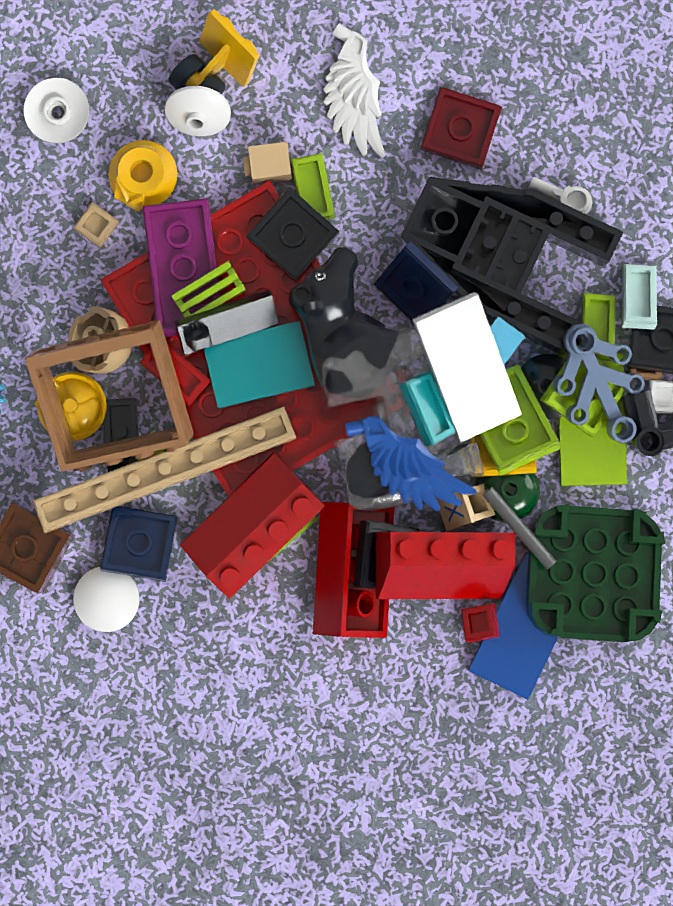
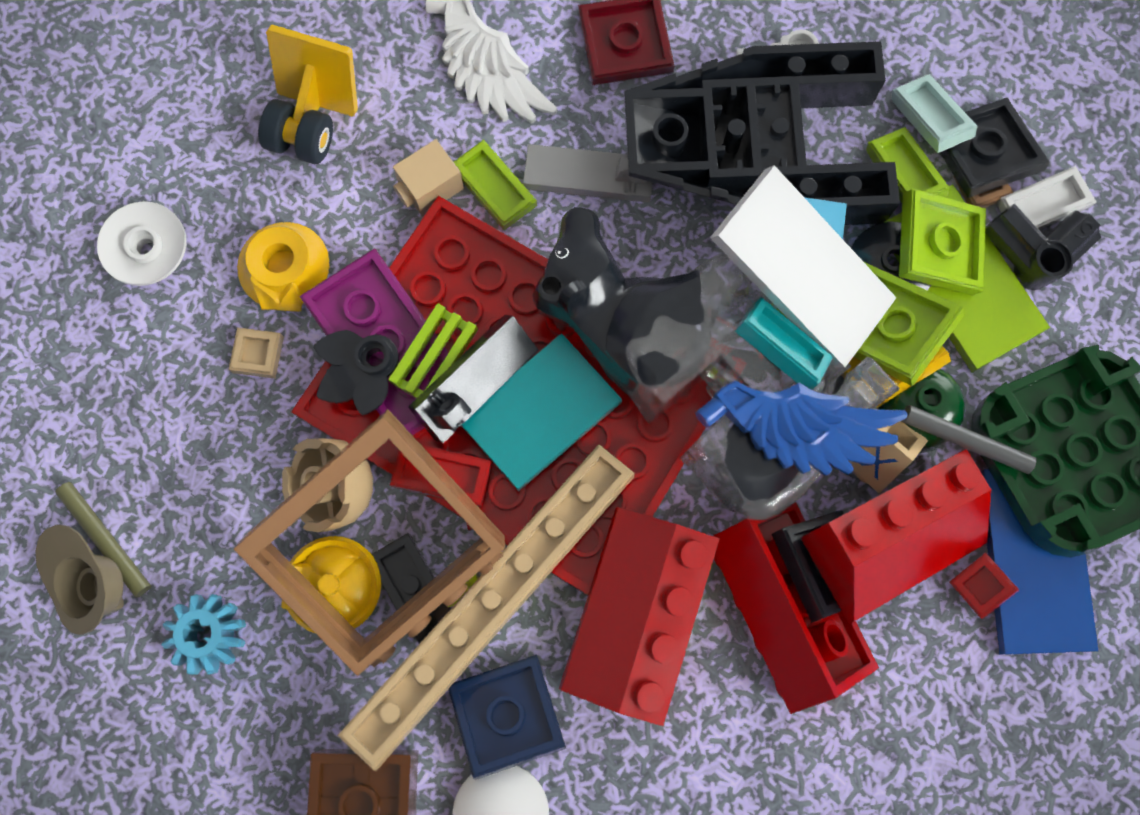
camera: 25 degrees left, 10 degrees down
(150, 277) = (350, 370): none -> black plate
(197, 111) = (309, 142): white dish -> none
(292, 234) = (498, 240): black tile -> none
(373, 209) = (583, 174): none -> light grey hinge
(415, 283) = (674, 222): dark blue tile -> none
(596, 379) = (917, 181): sand blue plant -> none

